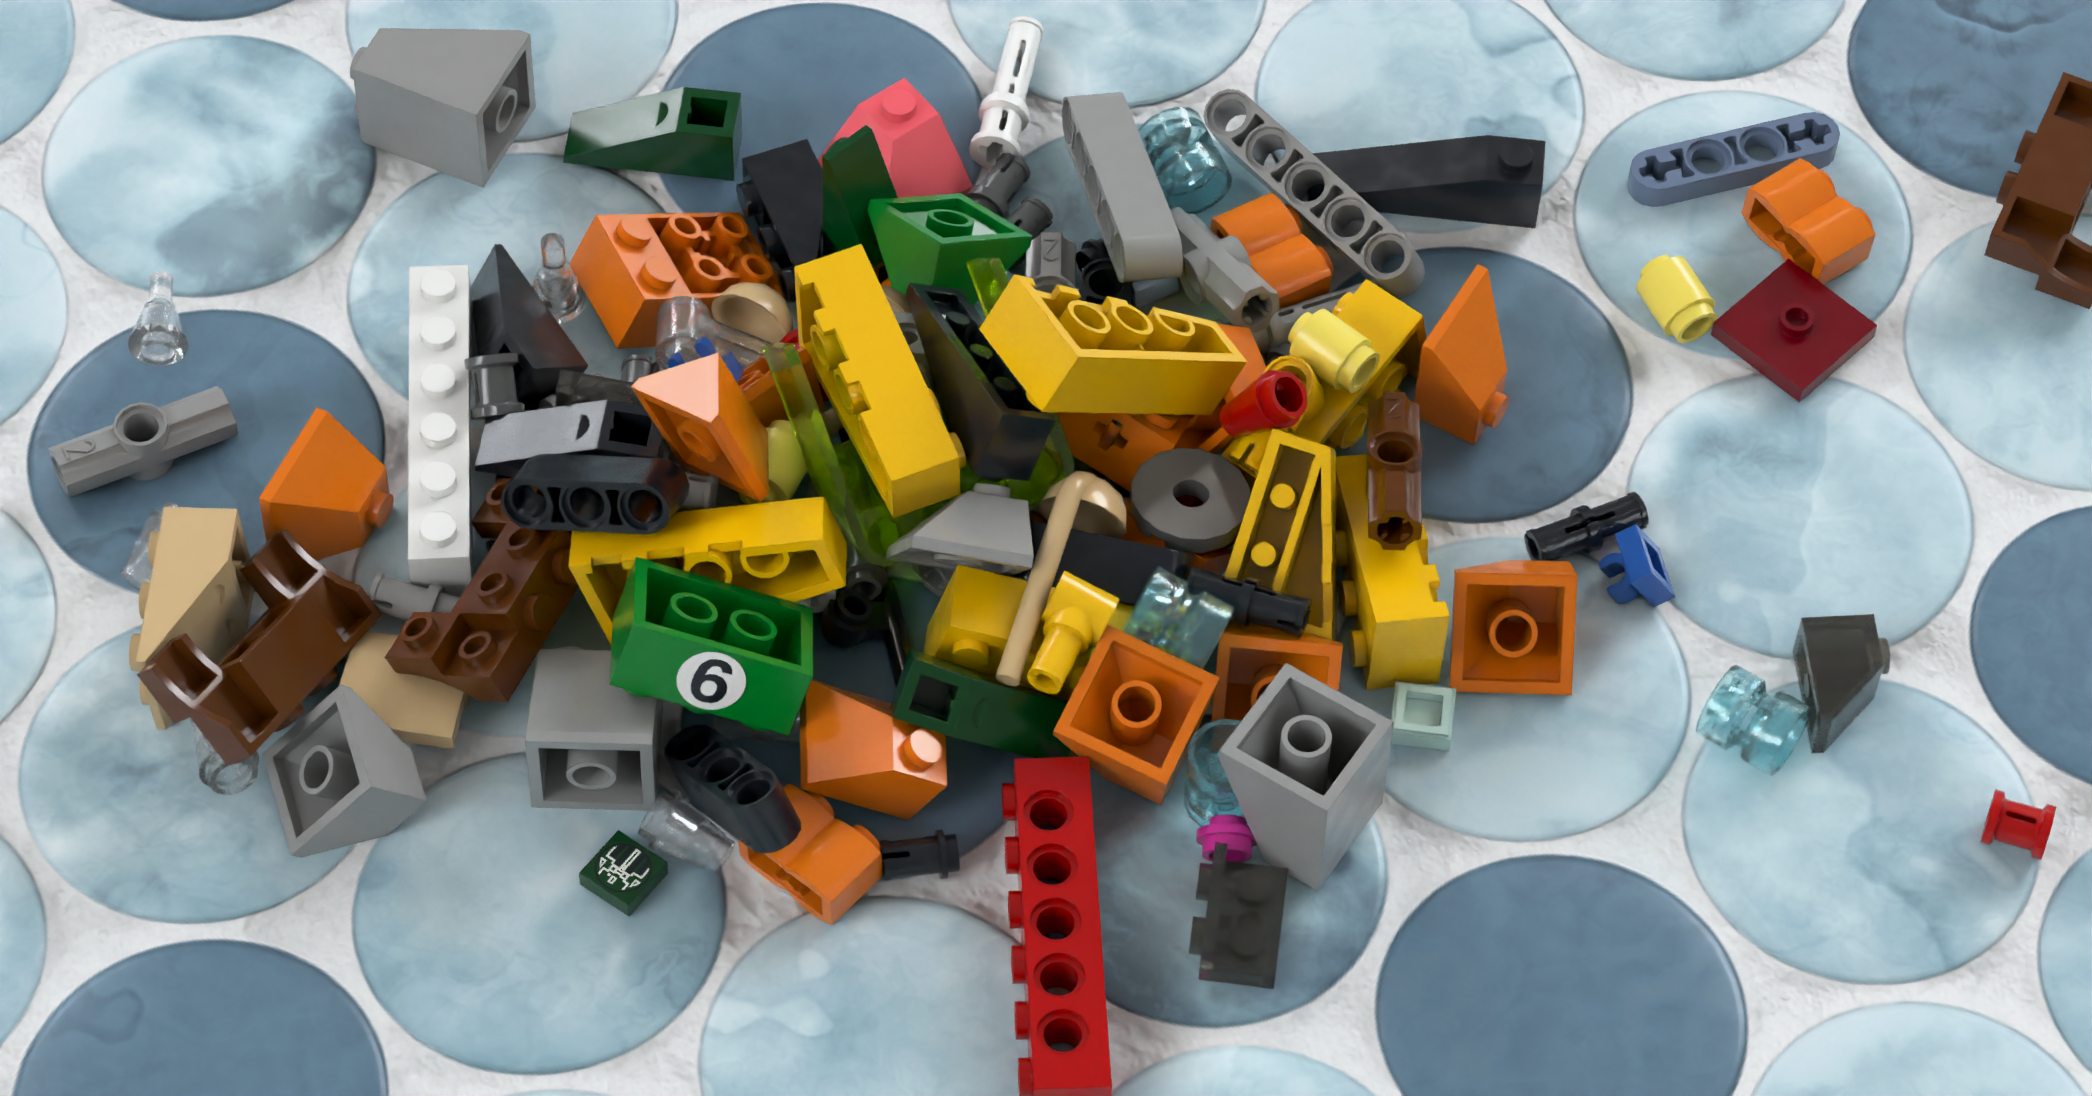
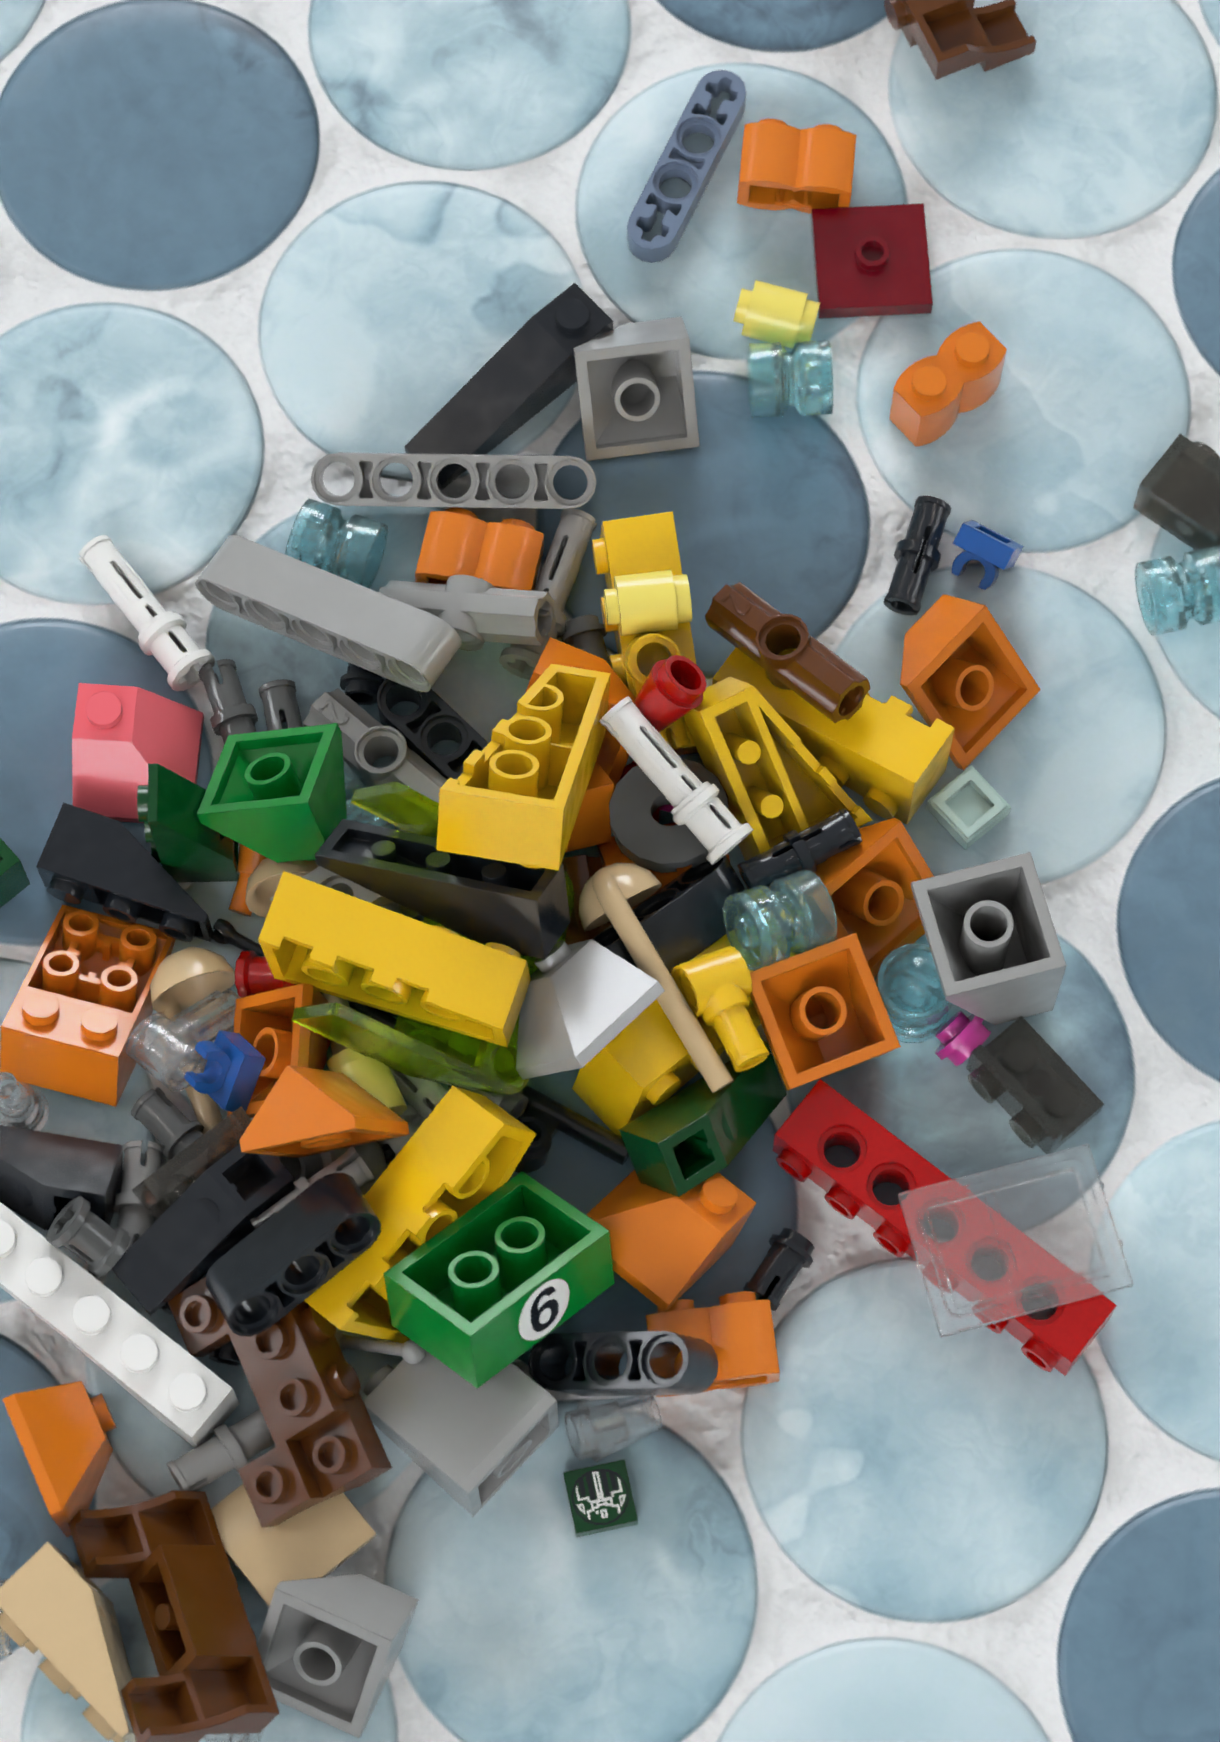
camera: 45 degrees left, 15 degrees up
(581, 621) = (410, 1351): none -> light grey hinge
(1092, 977) = (1015, 1240): none -> clear piece
(1205, 489) = (692, 800): none -> white pin
(1464, 364) = (712, 512): orange slope -> none
(1523, 242) = (637, 390): none -> light grey slope
(1624, 334) = (790, 378): none -> clear light blue wheel
(1744, 442) = (947, 383): none -> orange brick

